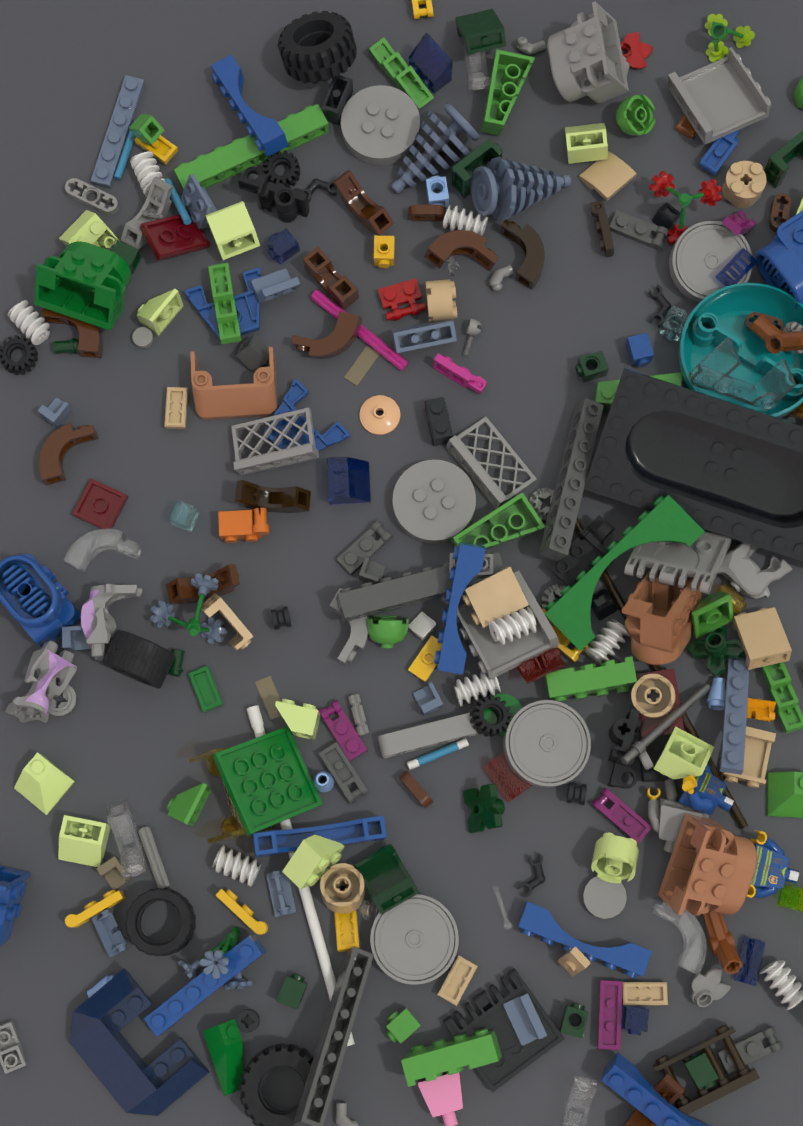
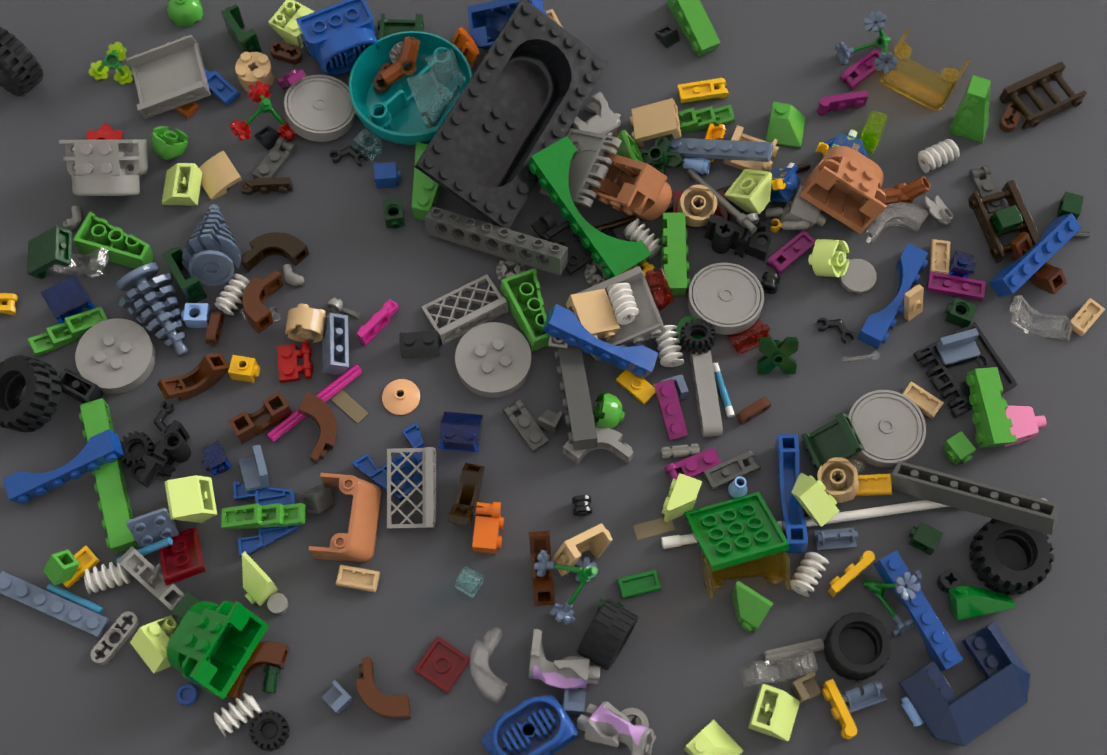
camera: 85 degrees left, 10 degrees down
(401, 697) = (670, 409): none -> magenta plate
(422, 625) = (606, 384): white slope -> none
(727, 280) = (336, 97): clear blue slope -> none
(751, 958) = (909, 174): clear blue hinge -> none

